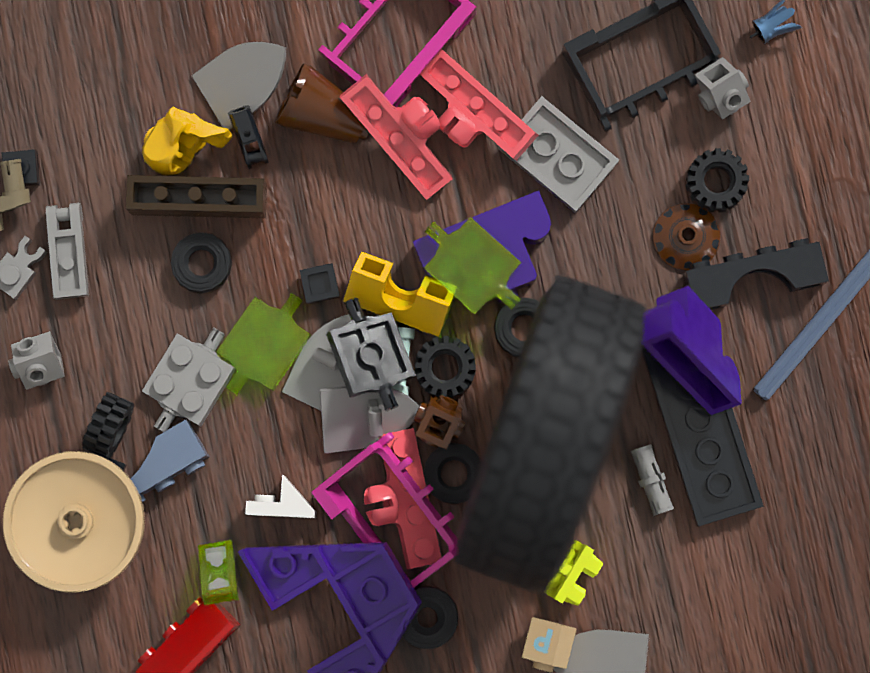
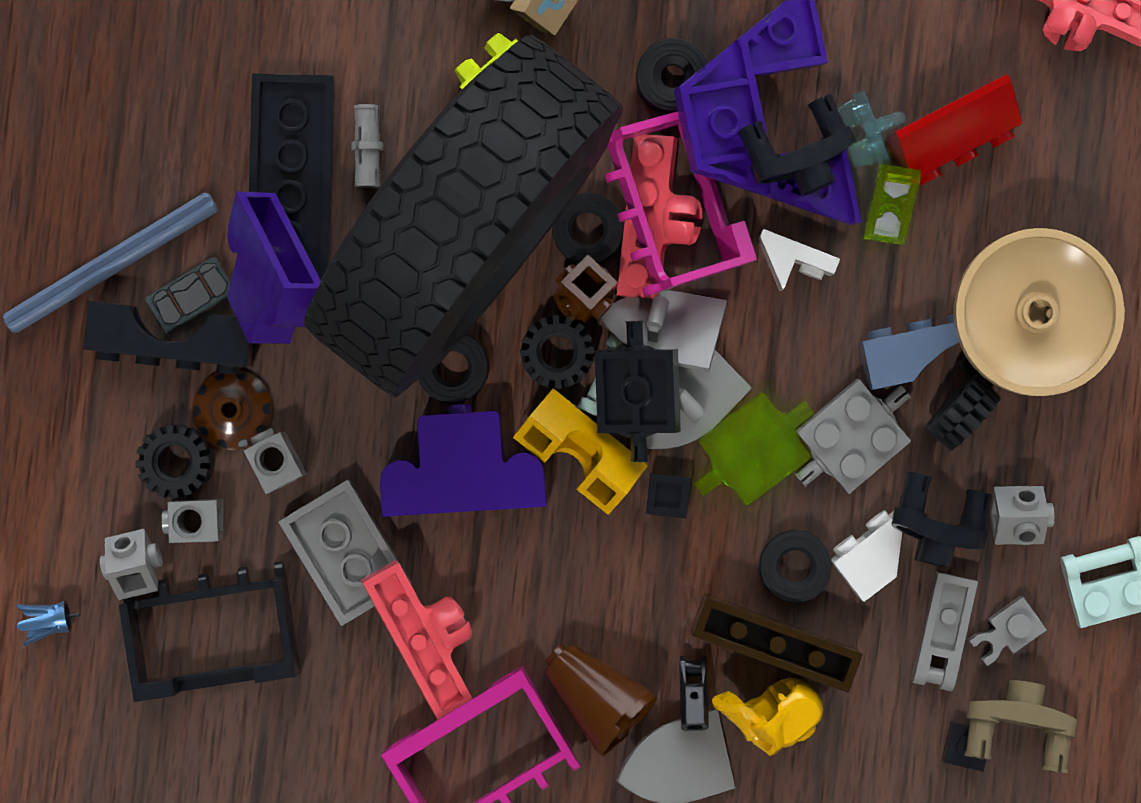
camera: 165 degrees left, 5 degrees up
(97, 318) = (936, 538): none -> black connector
(142, 289) = (871, 559): none -> white slope
(248, 613) = (871, 149): none -> clear light blue hips
(294, 578) = (808, 164): none -> black connector
(400, 133) = (518, 636): coral plate -> none
(472, 265) = (486, 453): clear neon green plate -> none
(638, 191) = (290, 470): none -> light grey brick
(674, 149) = (211, 515): none -> light grey brick
(751, 315) = (189, 295): none -> tile

